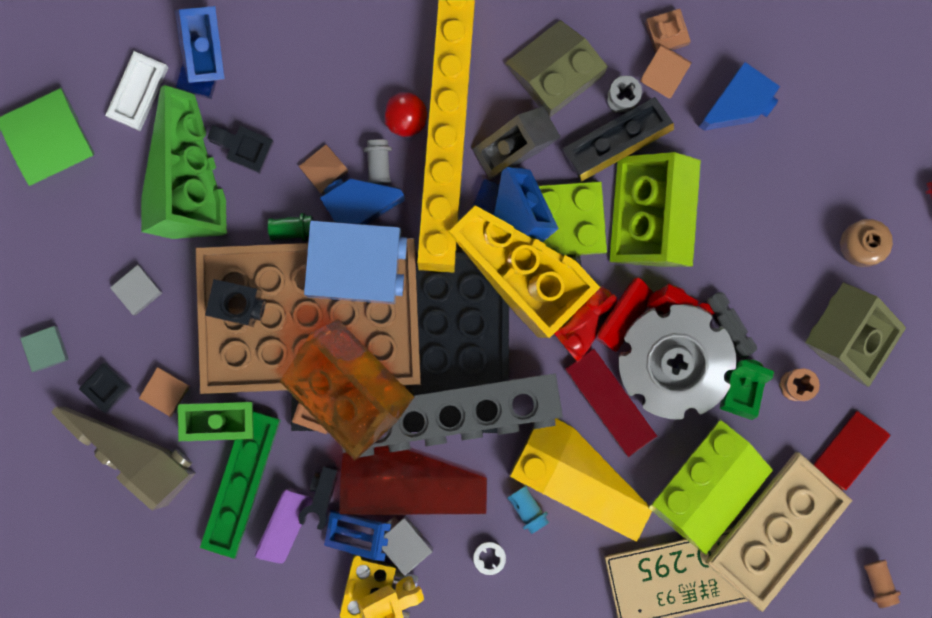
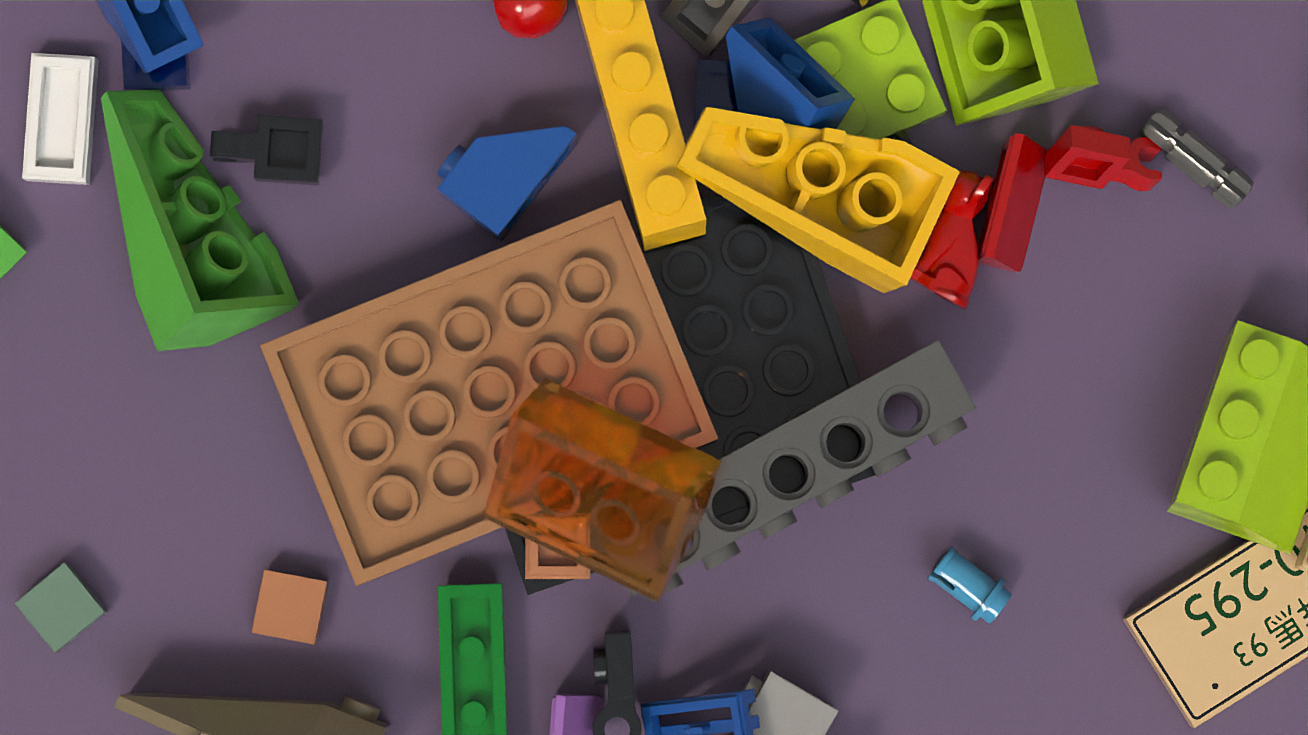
camera: 25 degrees left, 0 degrees up
(105, 387) = (187, 635): black tile -> none
(136, 290) = (181, 453): light grey tile -> none
(215, 421) = (398, 623): bright green slope -> none
(219, 303) = (334, 407): black brick -> none
(289, 227) = (405, 255): green pin -> none
(323, 168) = (423, 138): nougat slope -> none
(354, 262) = (539, 273): medium blue brick -> none
(378, 161) = (510, 93): light grey pin -> none
(408, 485) = (756, 616): clear red wedge -> none
(499, 552) = (922, 705): white bush -> none
(575, 474) = (1025, 499): yellow wedge -> none
(611, 403) = (1043, 359): dark red tile -> none
(690, 385) = (1167, 280): light grey piece -> none
(746, 388) = (1257, 255): green bracket -> none

